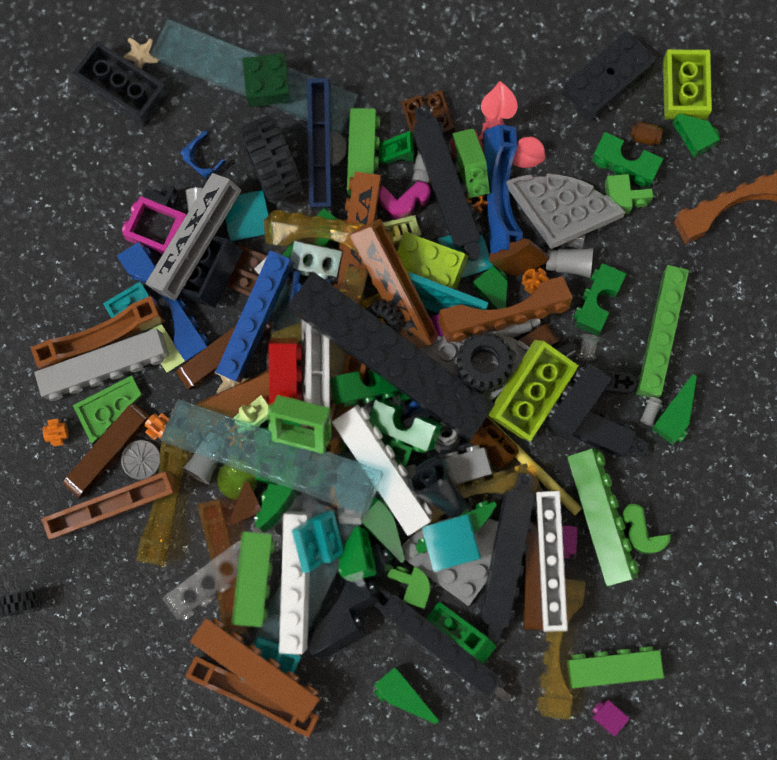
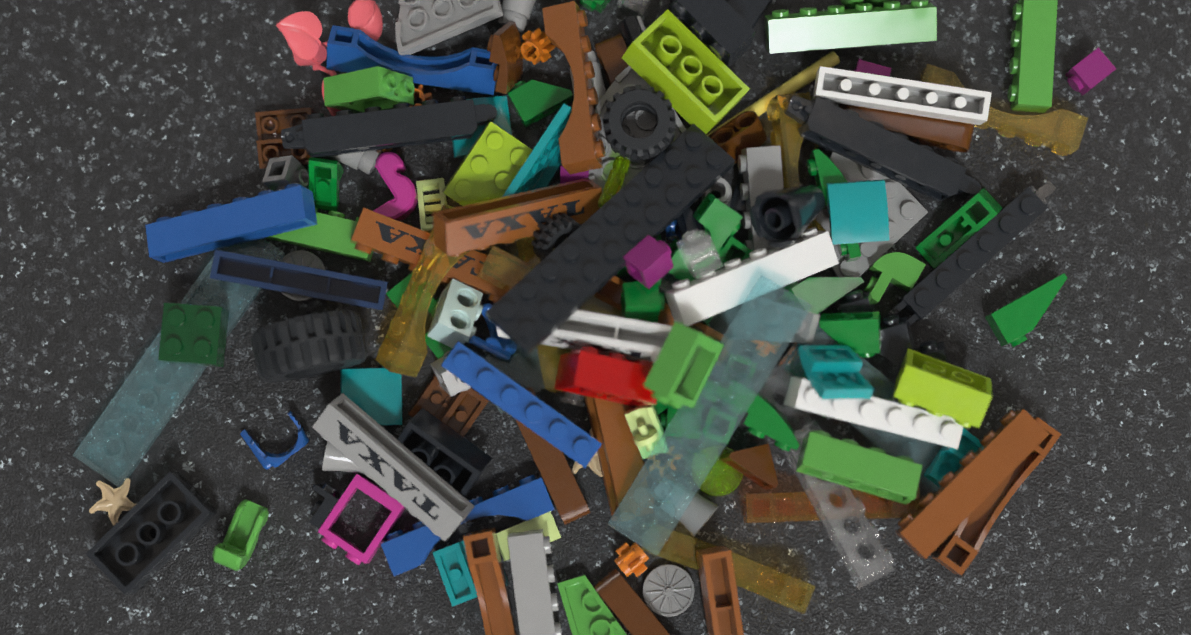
camera: 85 degrees left, 5 degrees up
(128, 145) = (241, 535): none -> bright green animal
(323, 631) = (943, 389): none -> lime brick
(353, 89) = (231, 223): none -> blue brick
(377, 386) = (649, 261): none -> magenta brick
(390, 422) = (699, 253): none -> clear brick
(395, 120) = (285, 171): none -> flat silver brick
(439, 353) = (614, 180): none -> clear neon green axle

